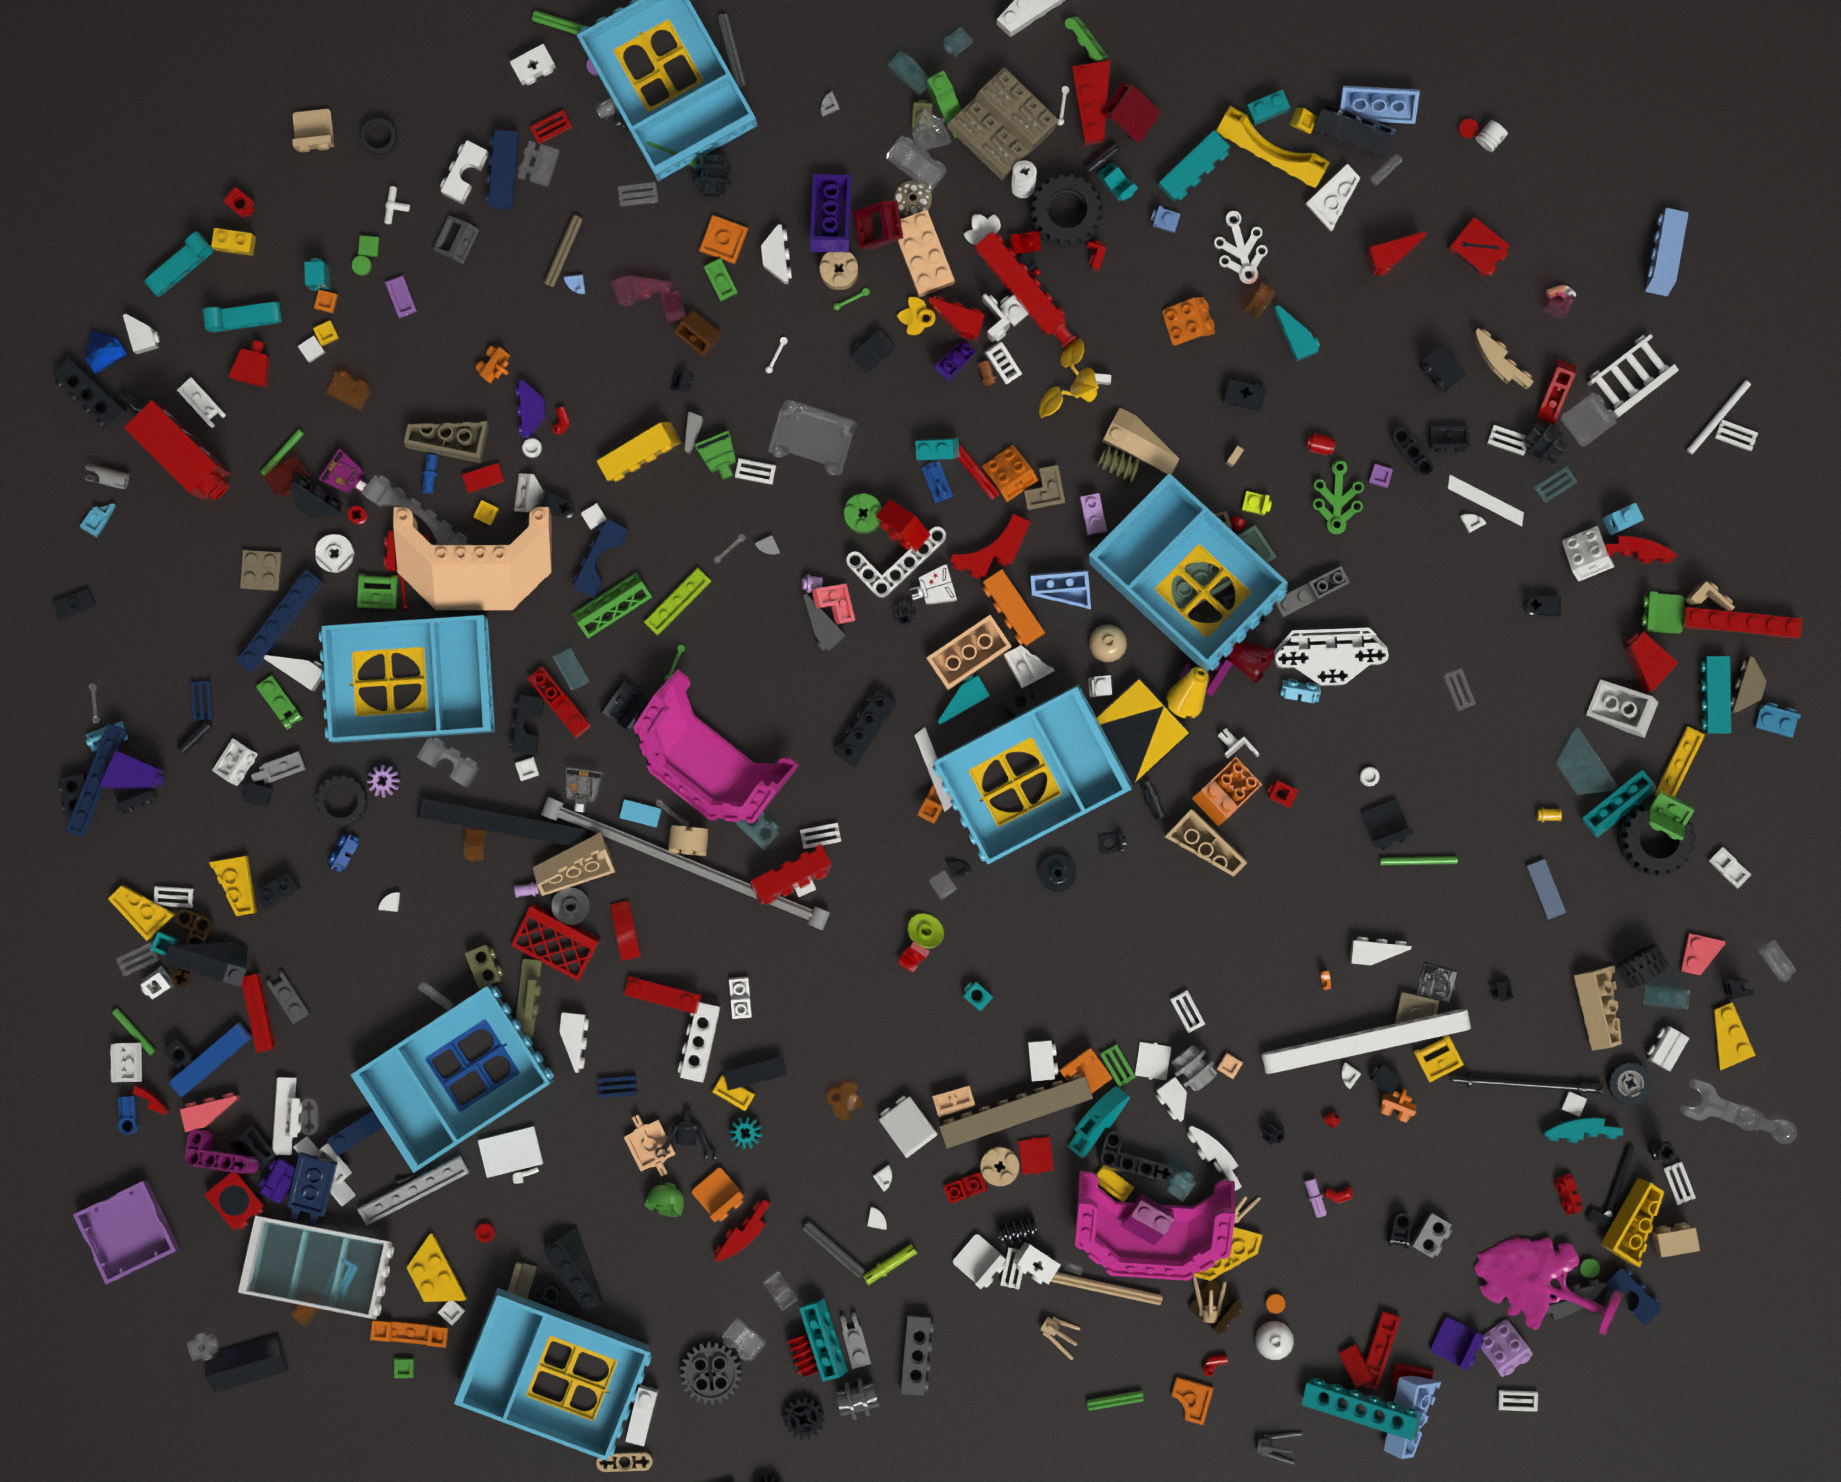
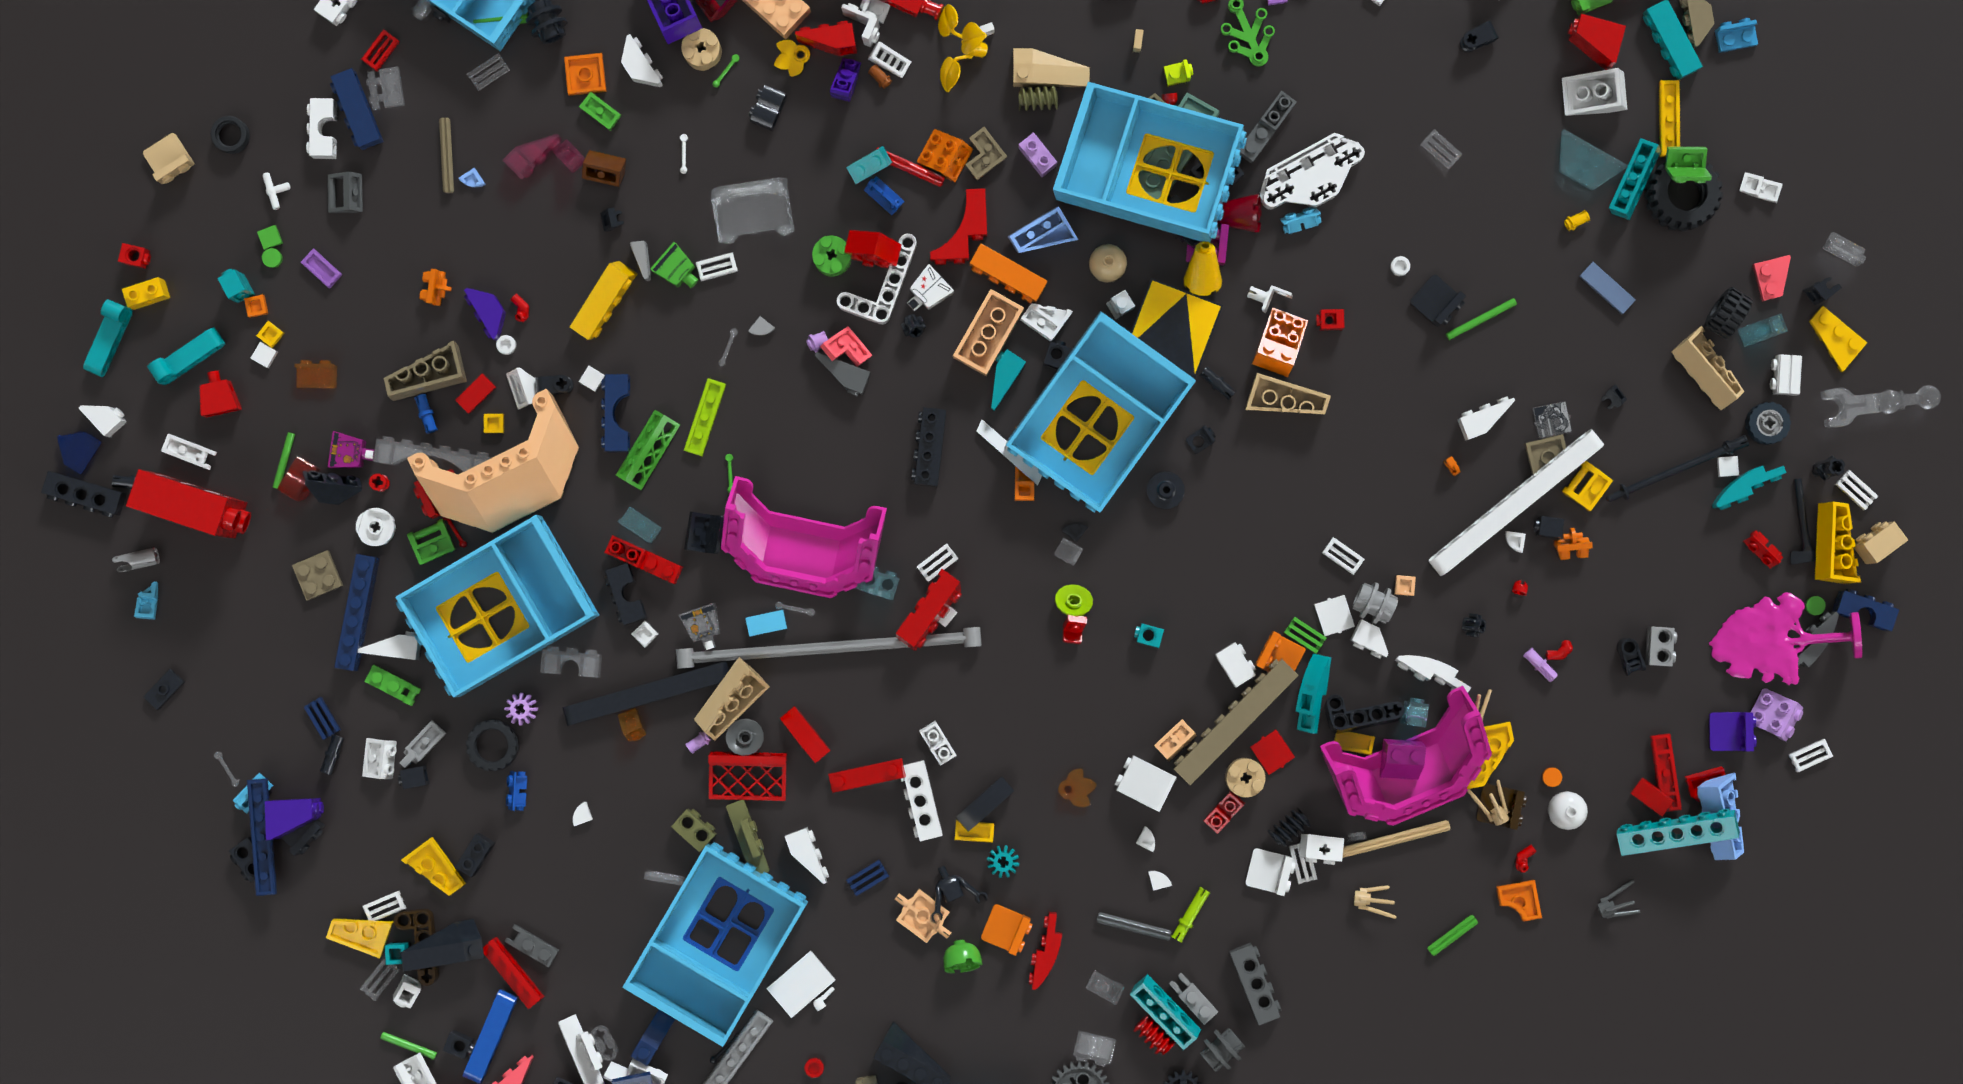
camera: 25 degrees left, 0 degrees up
(688, 840) = (821, 625): tan brick -> none

